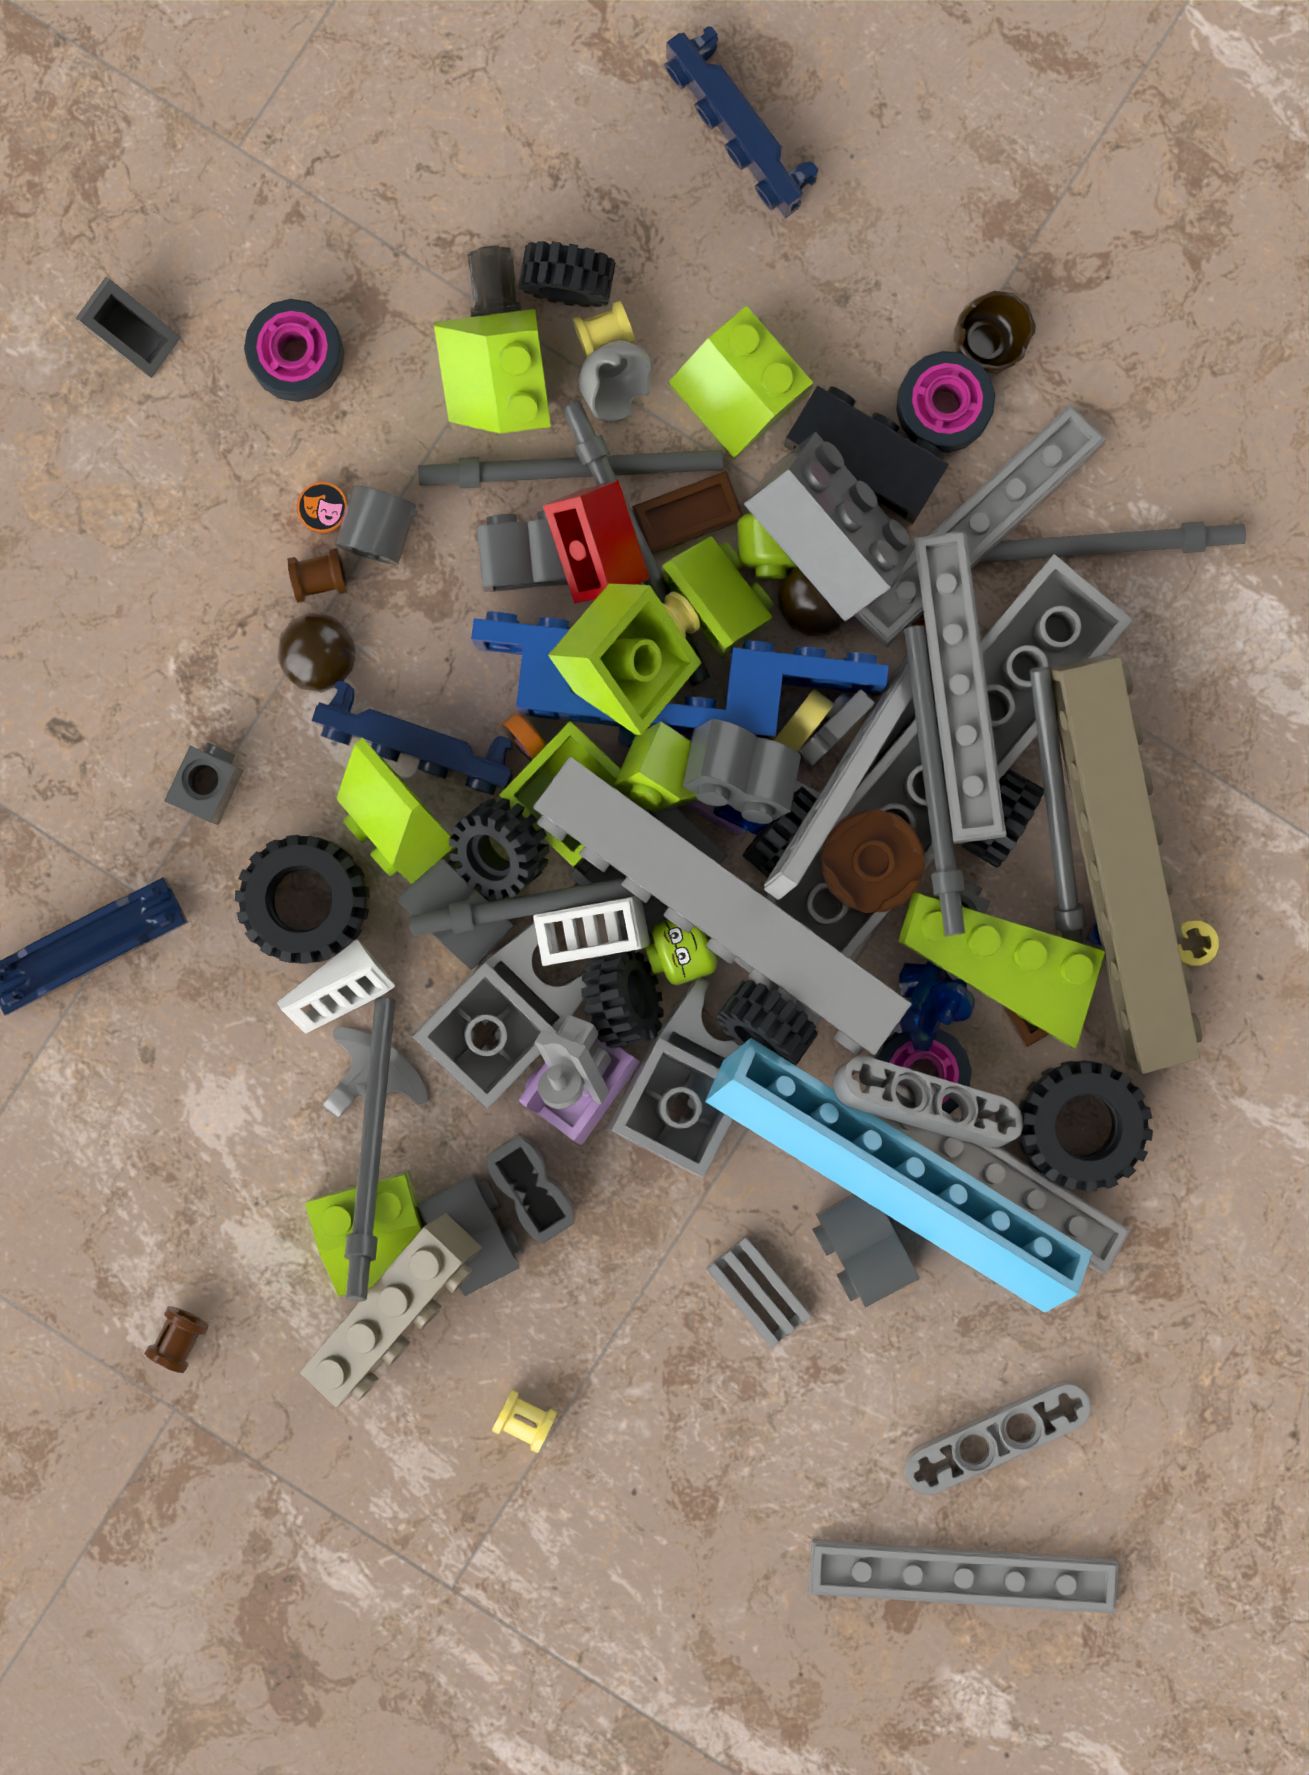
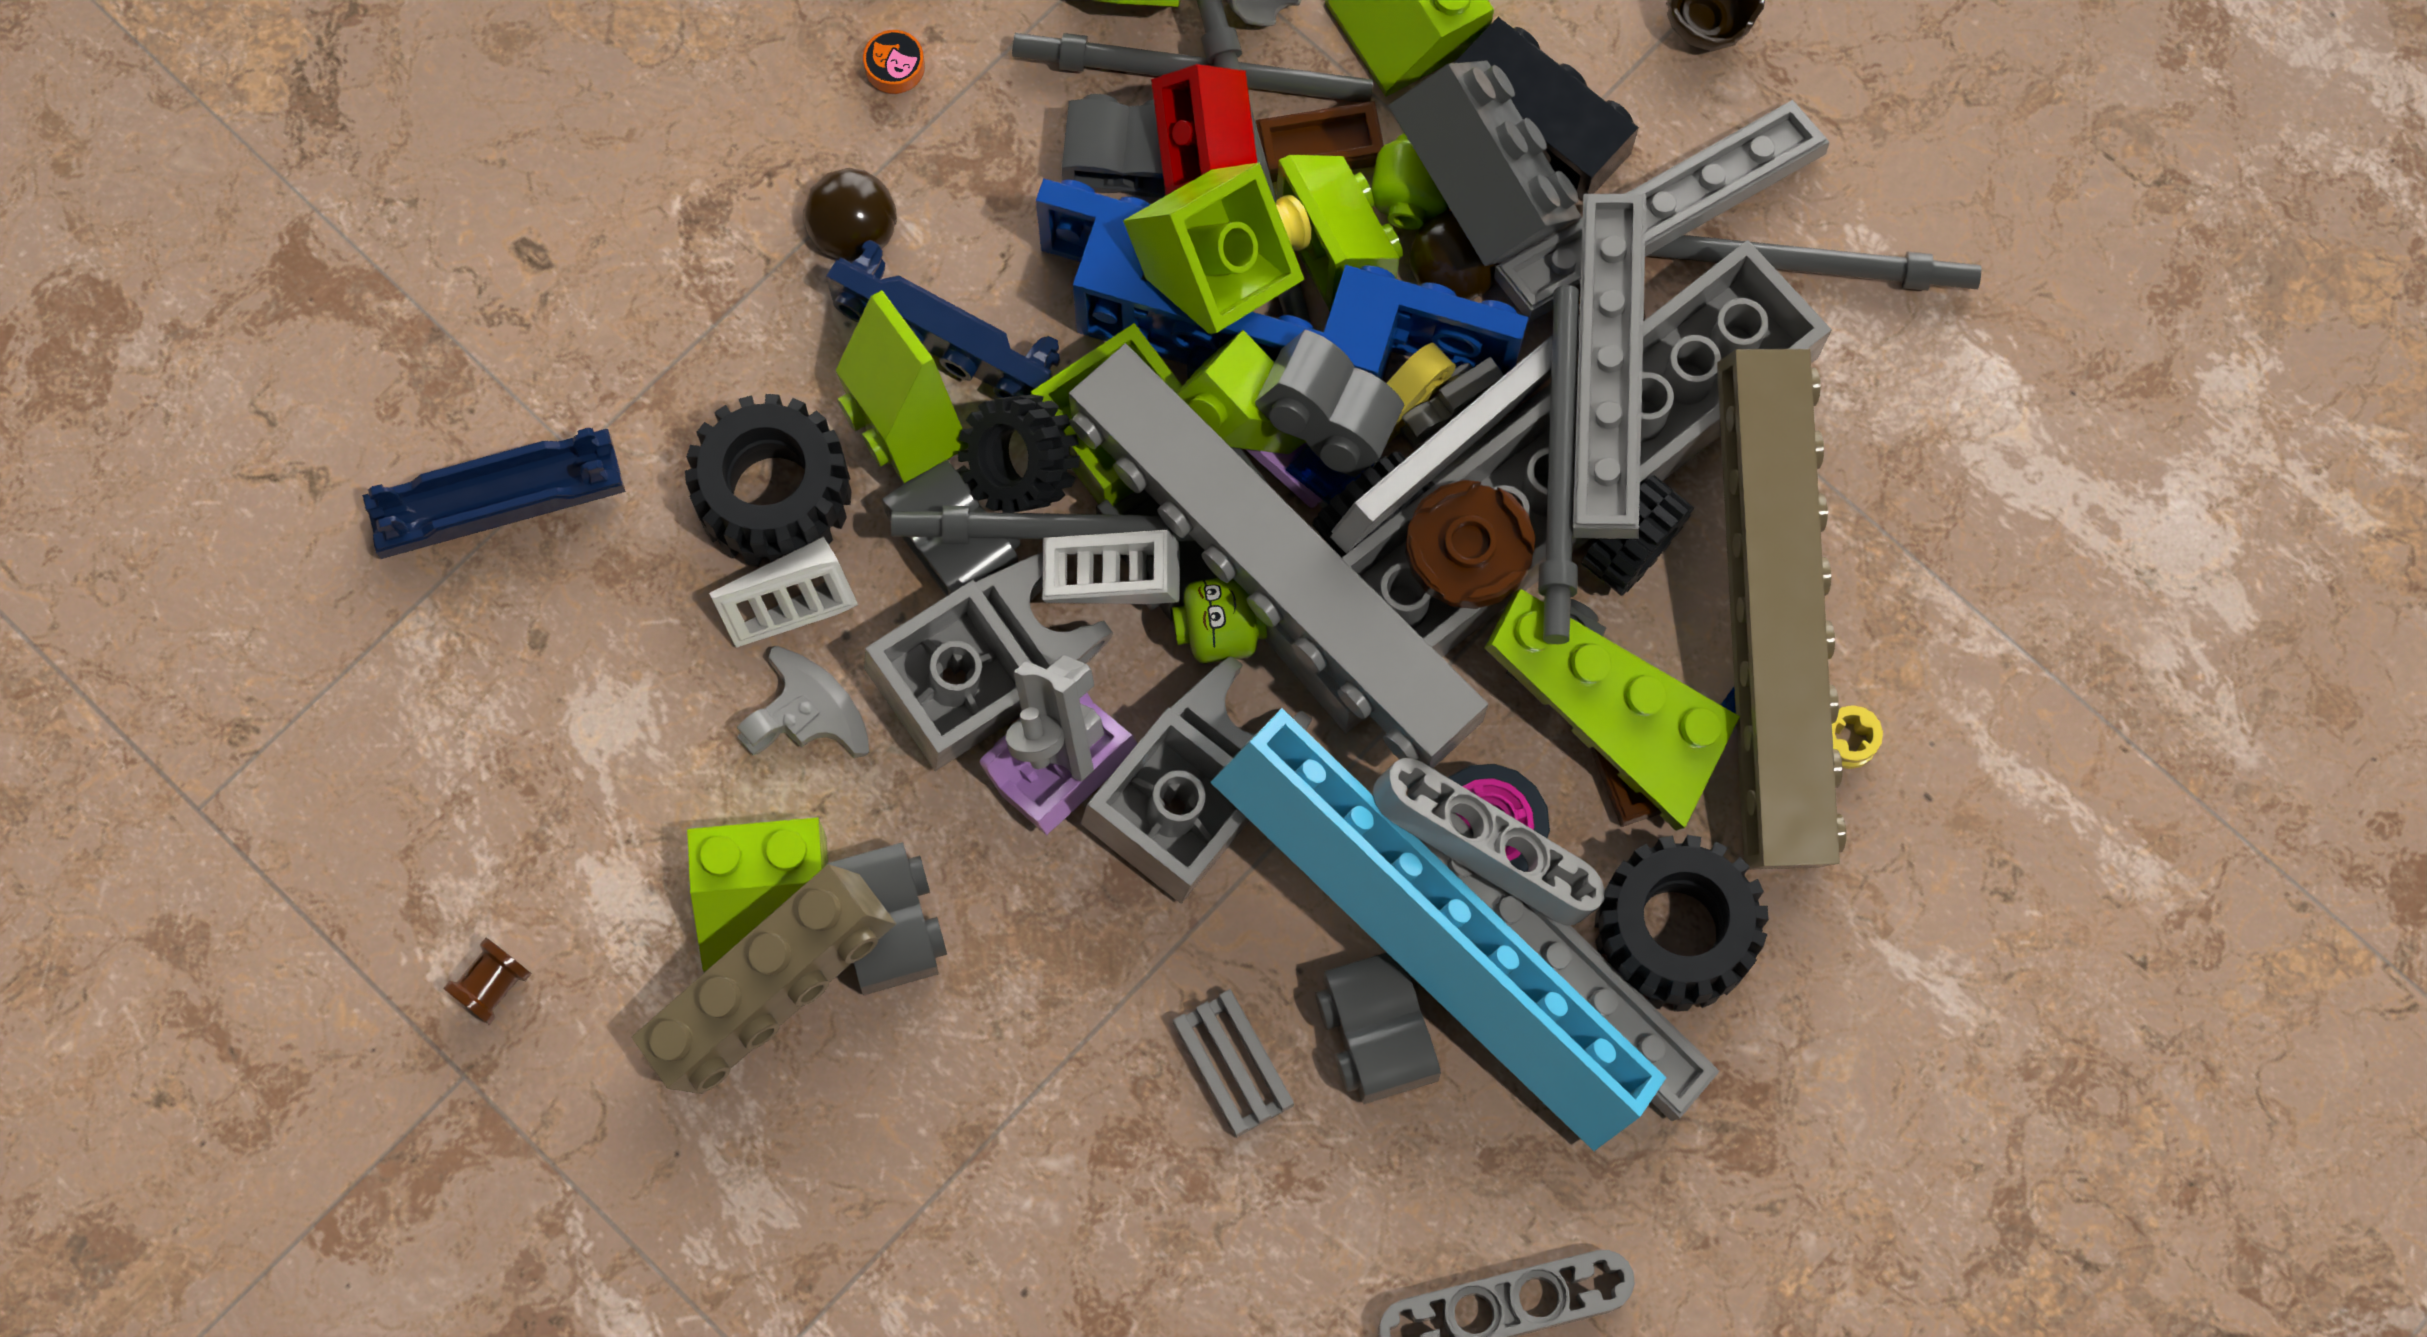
camera: 10 degrees right, 15 degrees down
(183, 791) = (686, 357): dark grey brick -> none
(317, 575) = (870, 128): reddish brown bush -> none
(361, 1244) = (746, 876): dark grey bar -> none
(375, 524) = (951, 82): dark grey piece -> none
(515, 1406) = (902, 1166): light yellow bush -> none
(523, 736) = (1073, 340): orange tile -> none
(539, 1199) = (969, 861): dark grey brick -> none
(622, 999) = (1132, 660): black tyre -> none
(768, 1019) = (1309, 695): black tyre -> none
(933, 1001) = (1511, 735): clear blue hips -> none
(953, 374) = (1654, 42): wheel -> none
(1068, 914) = (1702, 670): dark grey bar -> none

